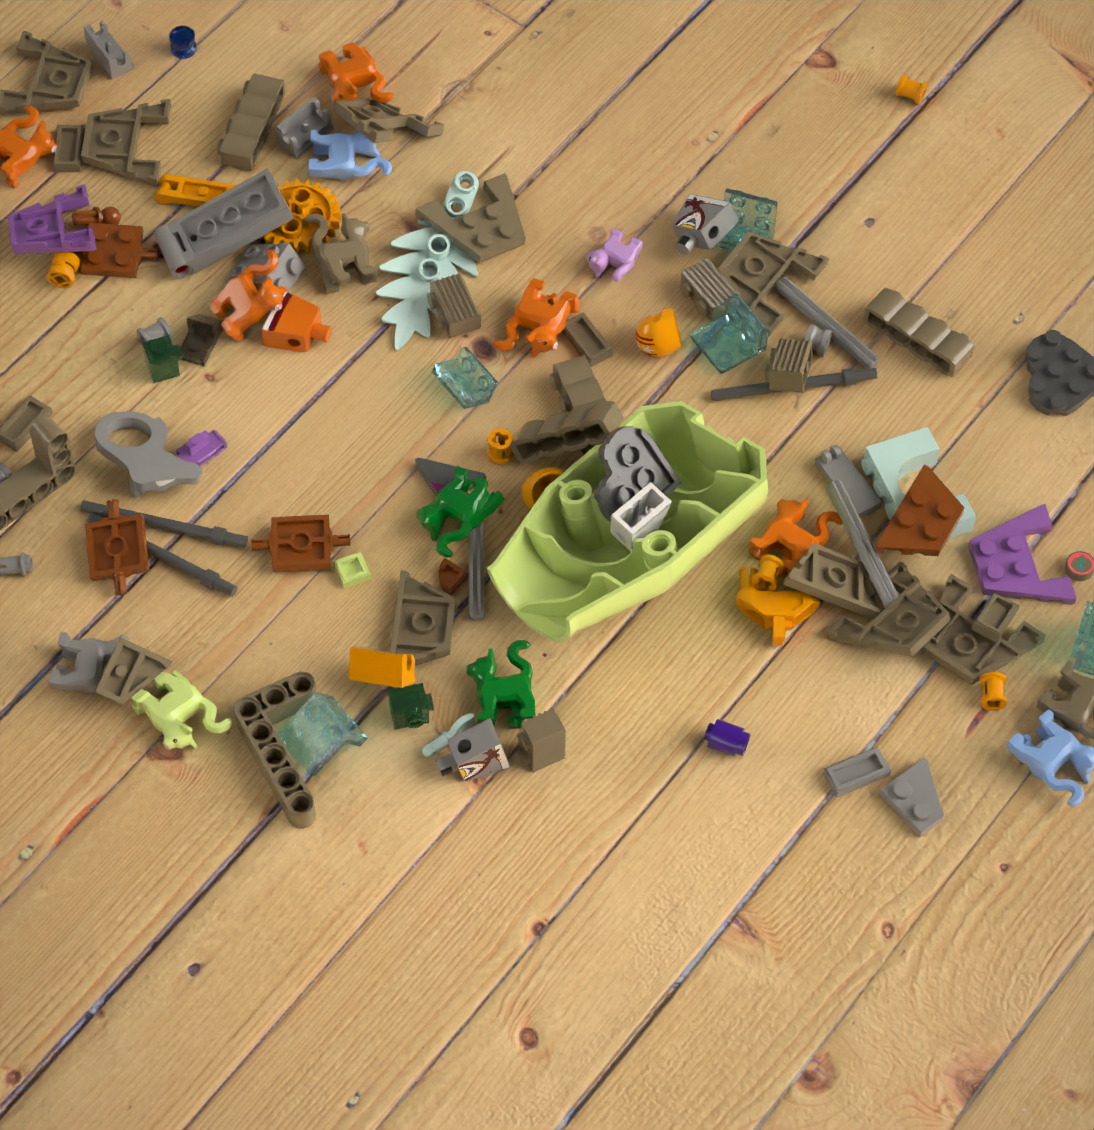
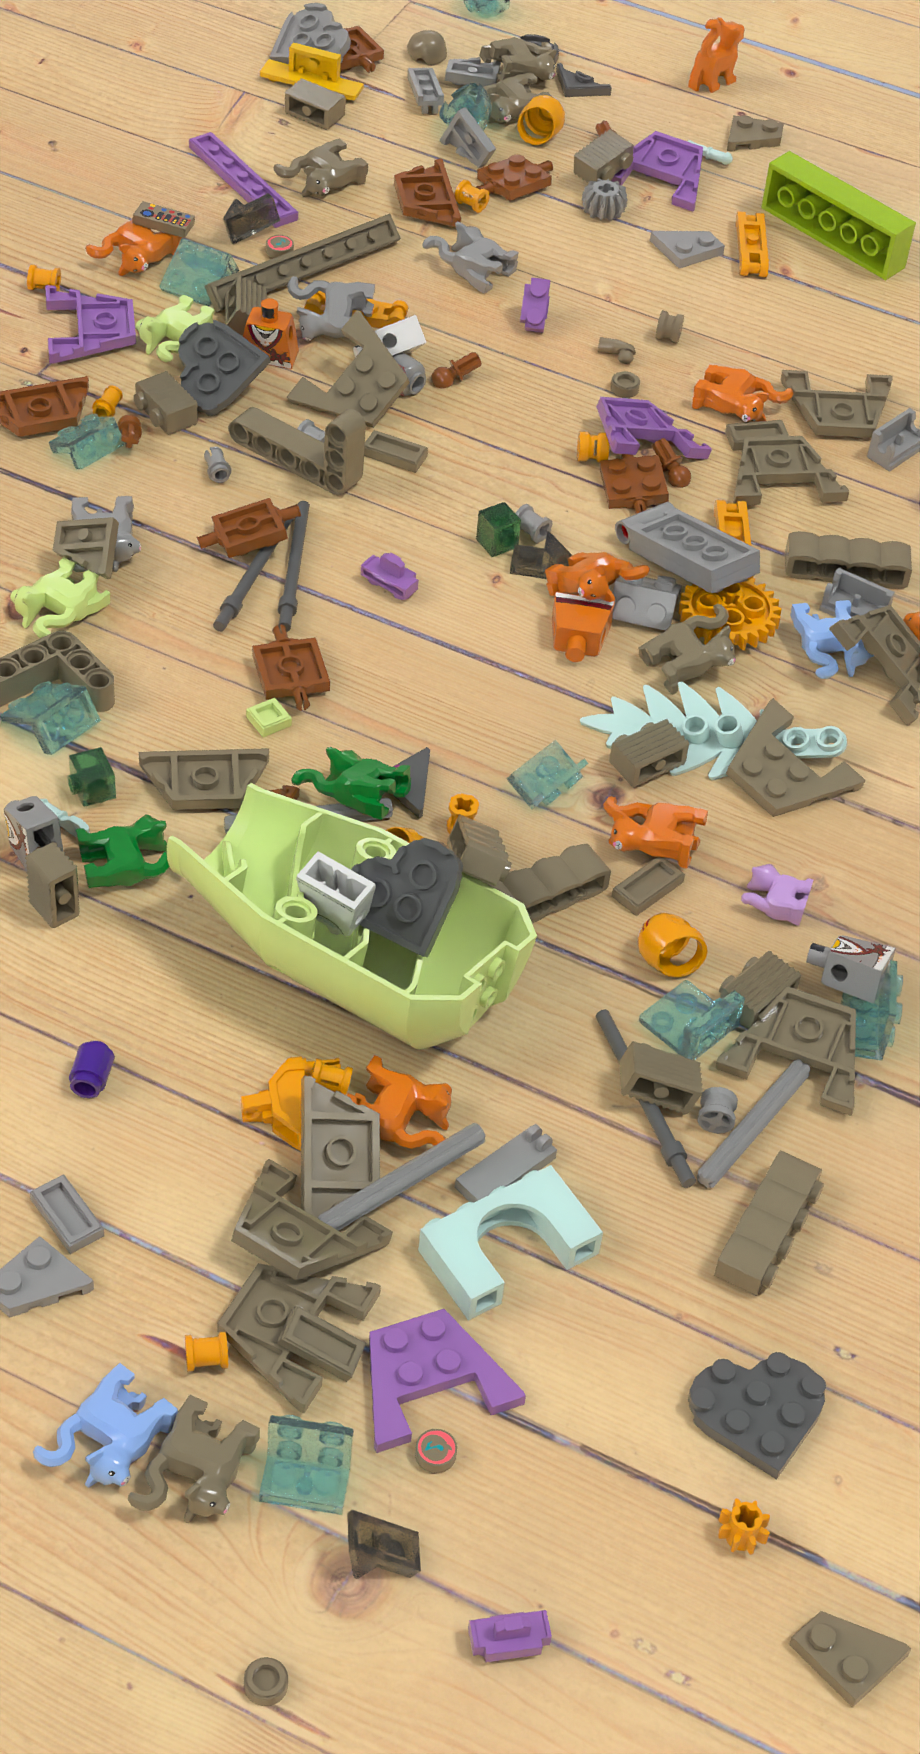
camera: 75 degrees right, 10 degrees down
(147, 464) = (354, 531): light grey animal -> none
(381, 667) = (126, 740): light orange hinge -> none
(923, 518) = (448, 1233): dark orange wing -> none

